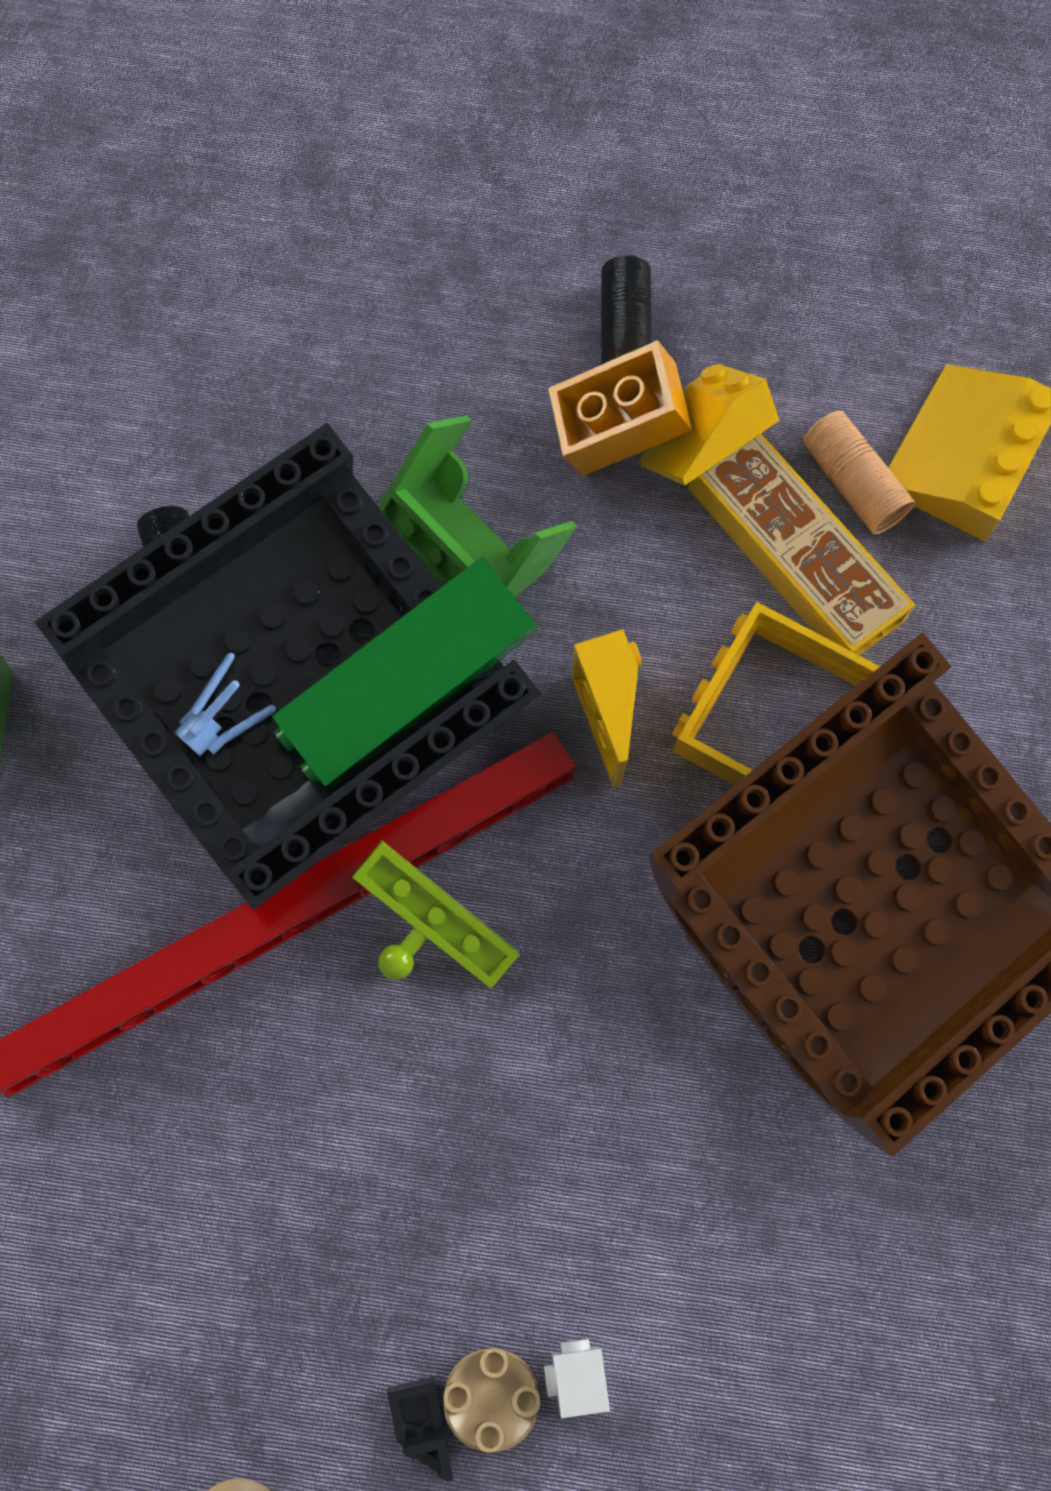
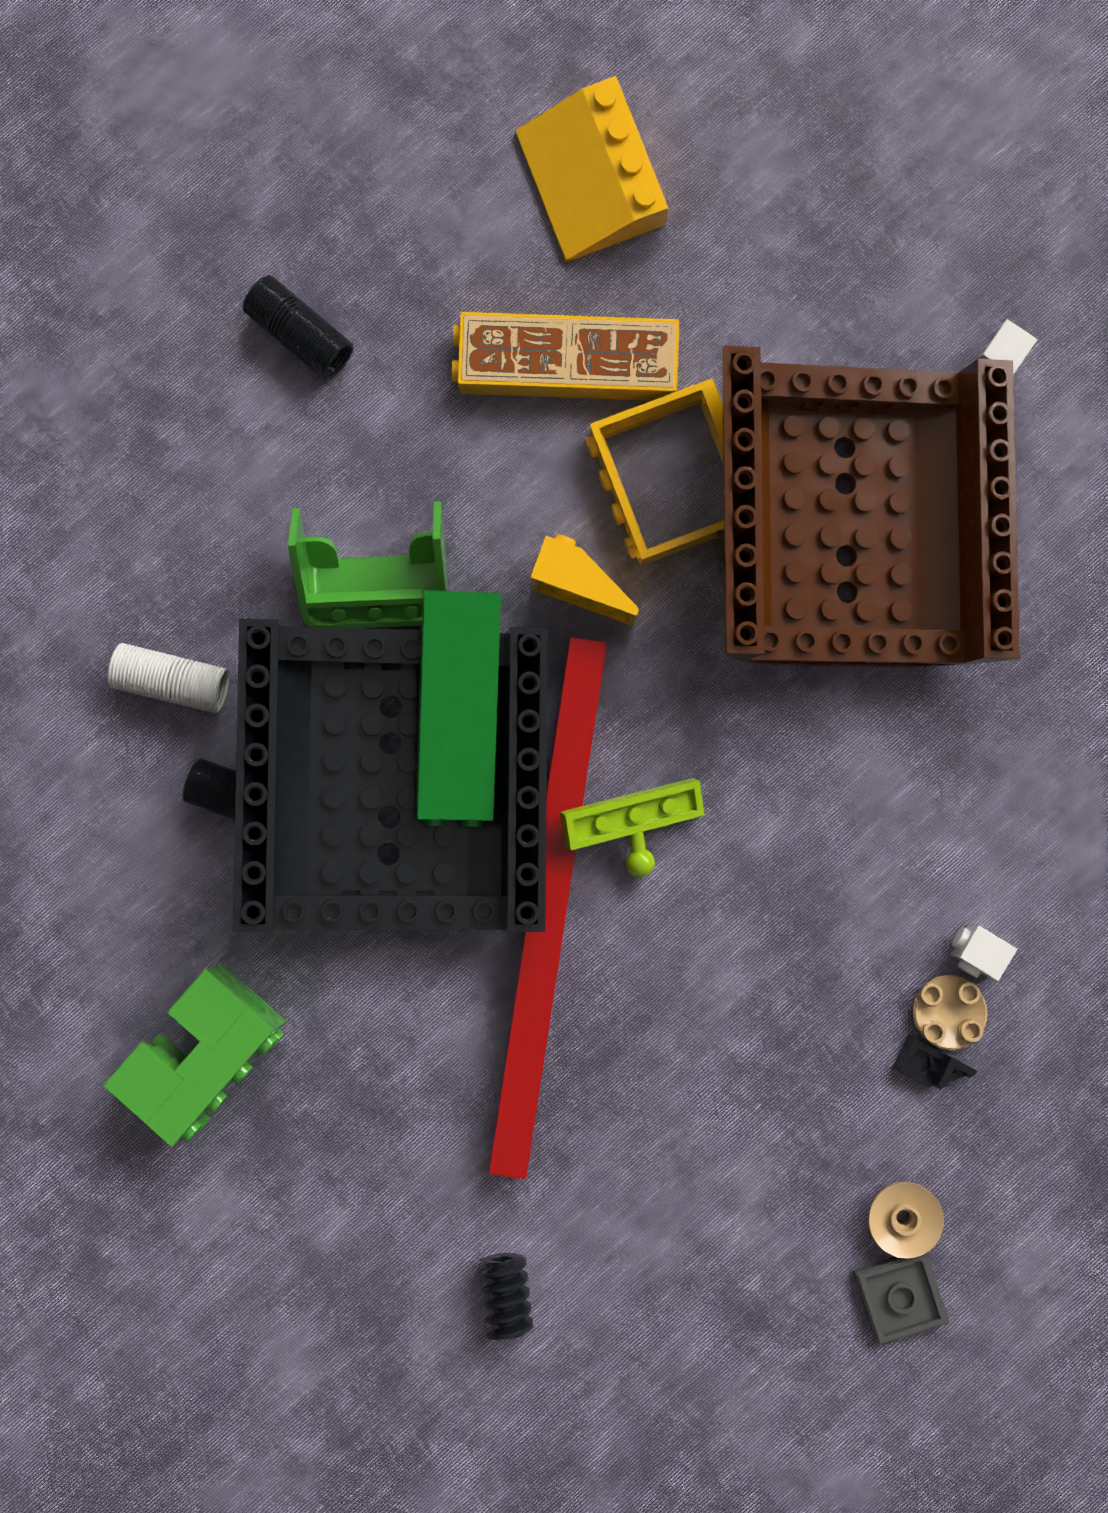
camera: 45 degrees left, 15 degrees up
(199, 728) = (384, 872): light blue plant -> none
(232, 426) = (160, 674): none -> white piece
(620, 408) = (372, 395): light orange brick -> none
(724, 413) = (433, 342): yellow slope -> none
(865, 478) = (564, 269): light nougat piece -> none

